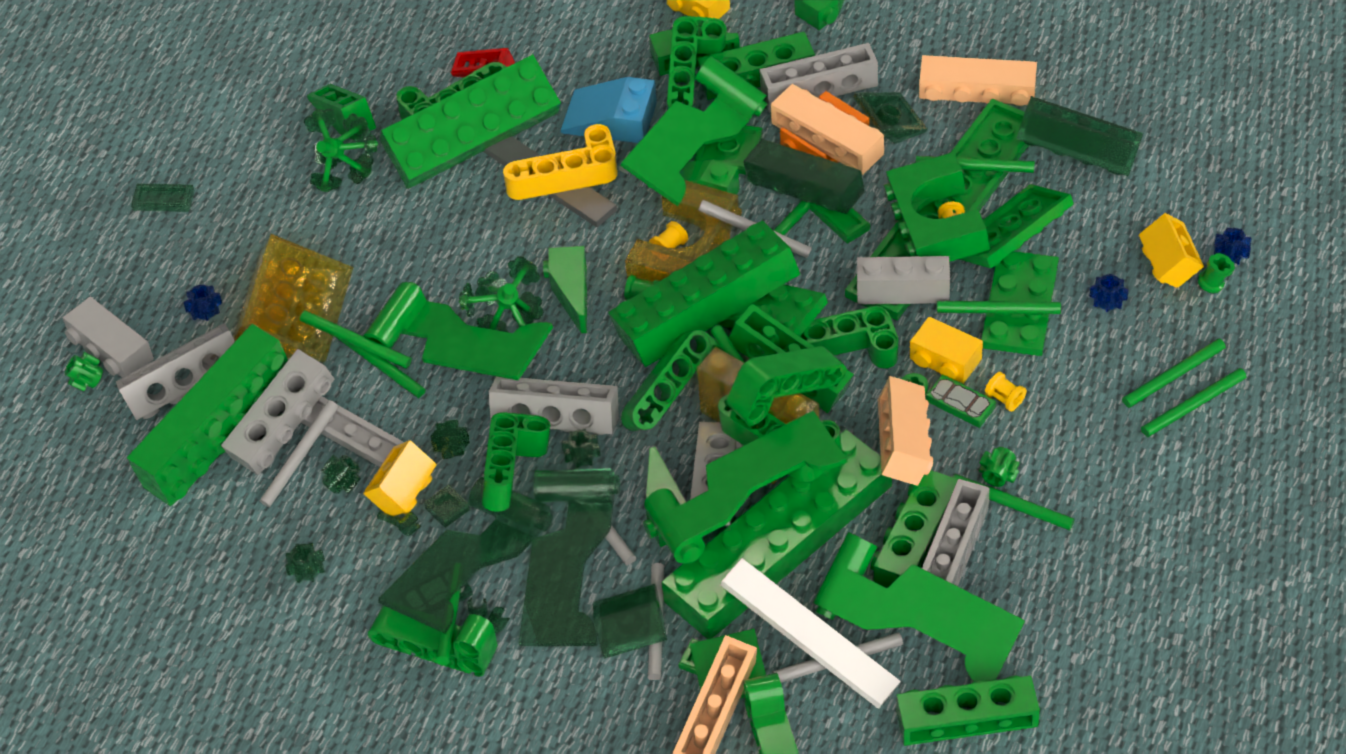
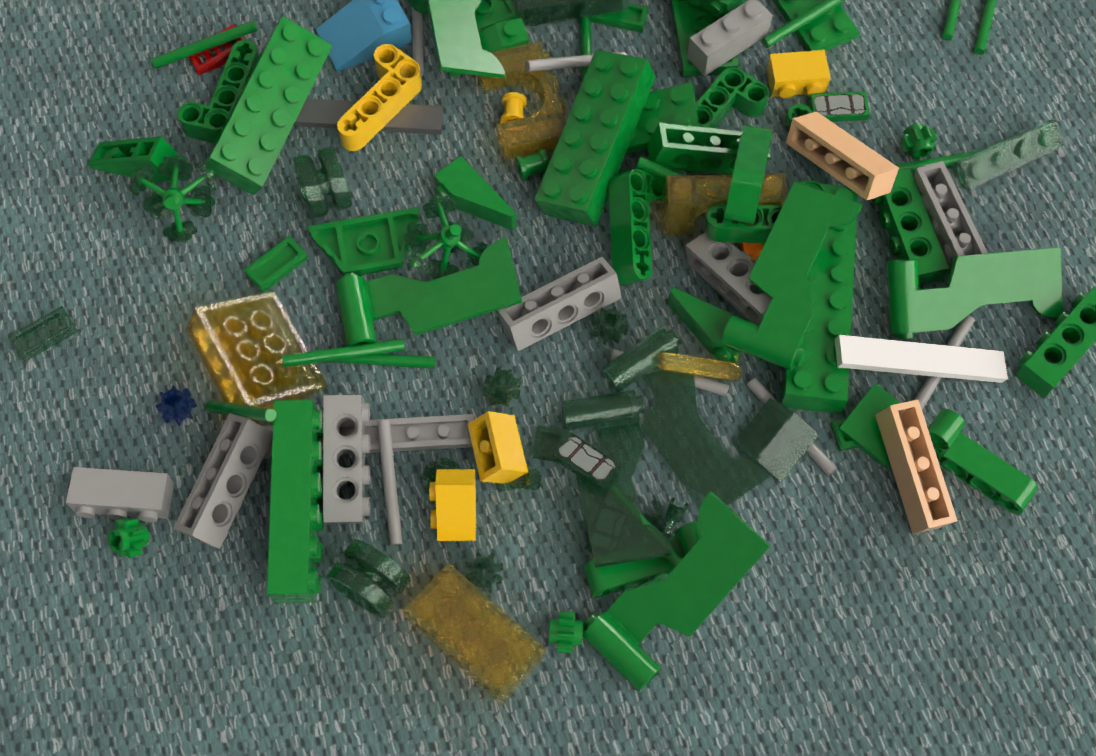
camera: 45 degrees left, 15 degrees up
(213, 504) = (368, 578): none -> clear green wheel
(233, 325) = (246, 411): none -> green bar
(254, 599) = (475, 633): none -> clear yellow brick
(321, 644) = (565, 632): none -> green gear
(325, 495) = (455, 504): none -> yellow brick
(373, 248) = (275, 264): none -> green tile
(416, 668) = (680, 599): none -> green door
(446, 268) = (366, 242): none -> green wing
(454, 529) = (585, 461): none -> tile
(456, 202) = (322, 182): none -> clear green wheel
(472, 52) = (204, 44): none -> green bar
(510, 437) = (556, 362): green beam -> none
(618, 521) = (699, 366): none -> clear yellow axle
(1005, 391) = (866, 80): yellow bush -> none
(1077, 529) = (1009, 154): none -> clear green plate

